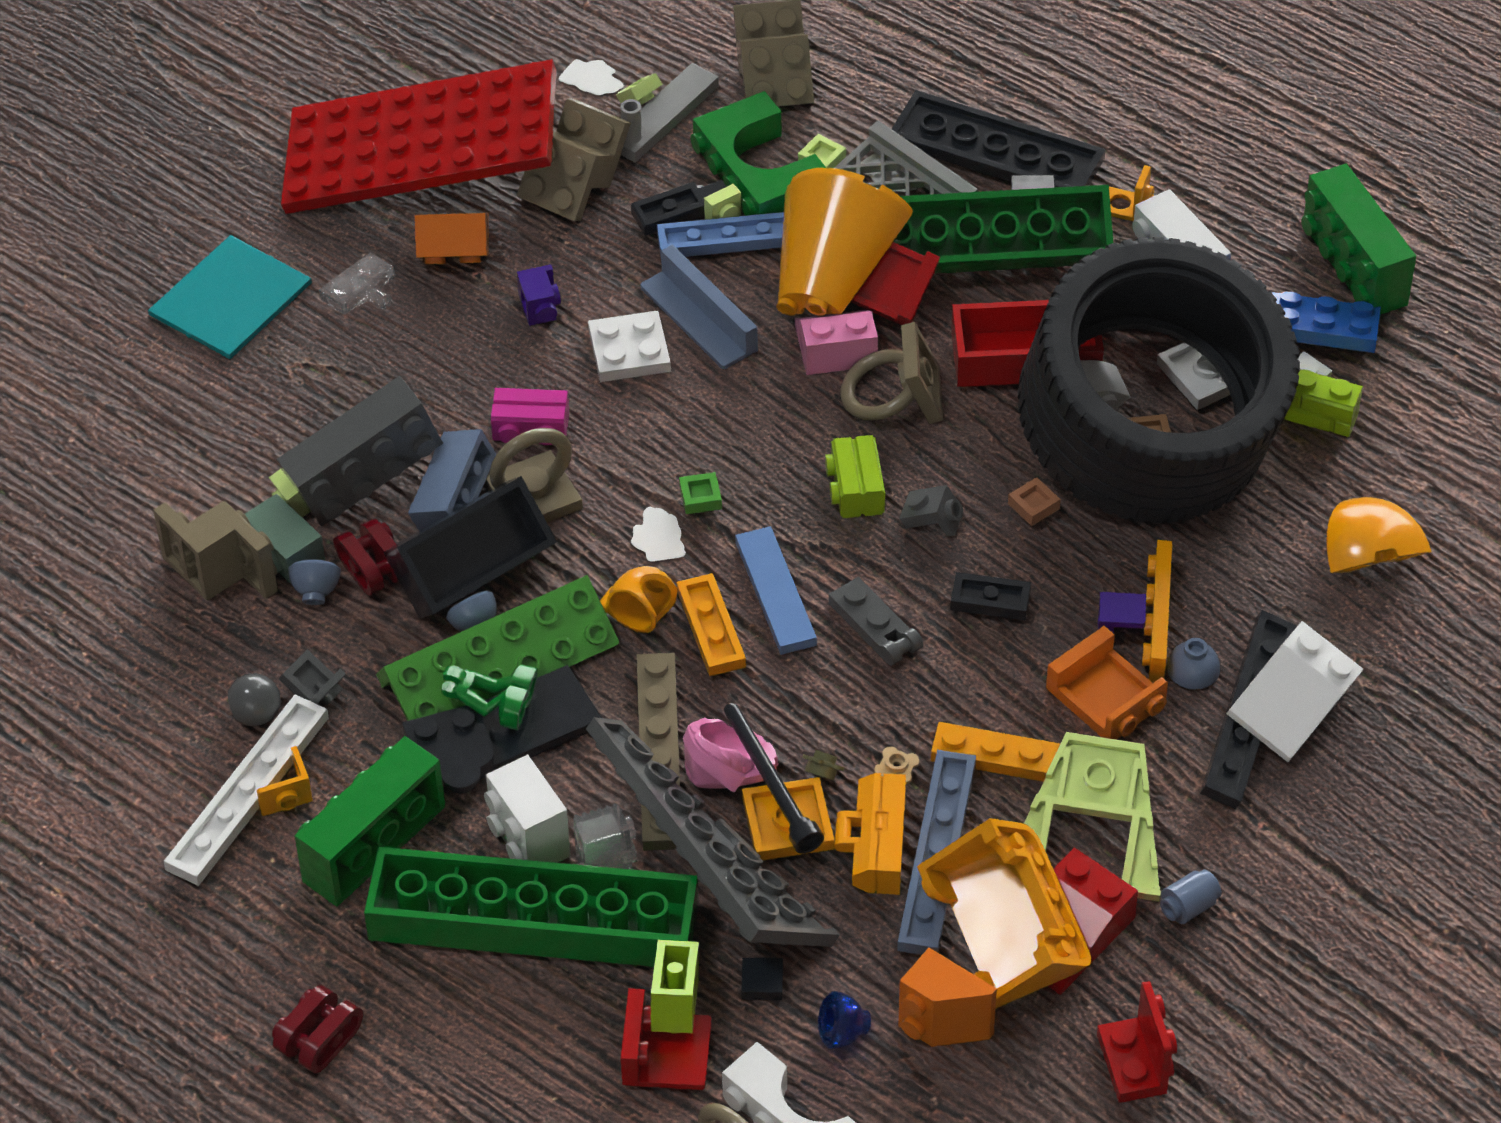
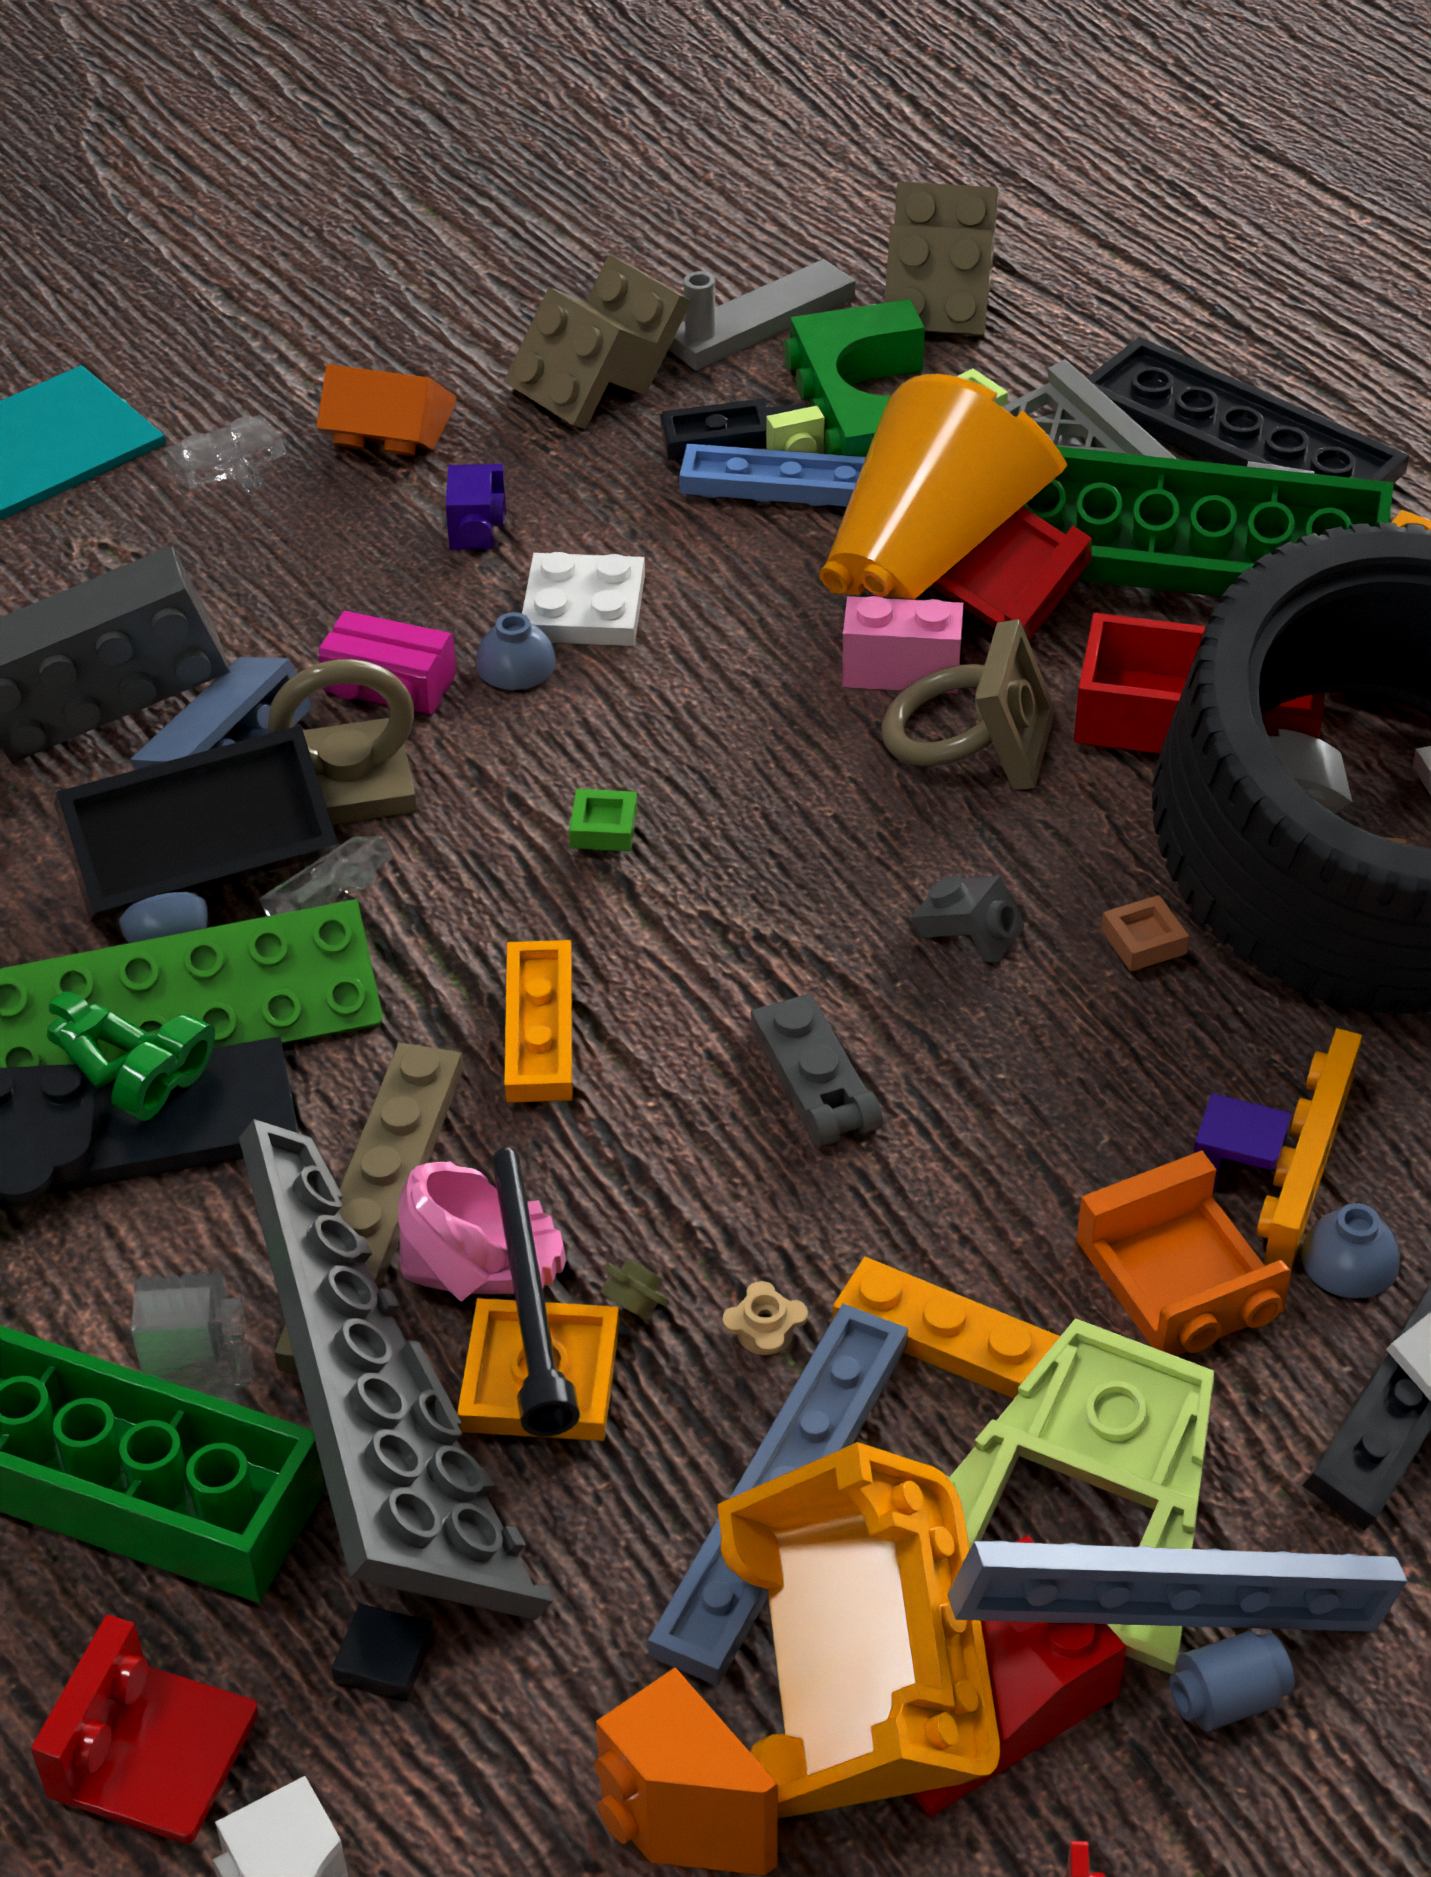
camera: 15 degrees right, 5 degrees down
(375, 538) = (26, 805): dark red brick -> none
(420, 136) = (392, 277): red plate -> none
(527, 813) = (80, 1258): white brick -> none
(555, 562) = (343, 869): none -> clear plate
(591, 77) = (675, 258): white sticker -> none
(603, 394) = (515, 654): none -> sand blue brick
(640, 598) = (438, 956): light orange piece -> none
(641, 89) = (738, 277): yellowish green plate -> none
(658, 535) = (517, 873): white sticker -> none
(674, 986) = (196, 1631): lime brick -> none
(701, 310) = (711, 570): sand blue panel -> none
(775, 590) = (668, 991): medium blue tile -> none
(841, 1020) = (492, 1771): clear blue brick -> none
(856, 475) = (861, 841): lime brick -> none
(881, 819) = (698, 1422): light orange piece -> none
(990, 596) = (1023, 1067): black plate -> none
(1156, 856) = (1174, 1587): none -> sand blue plate

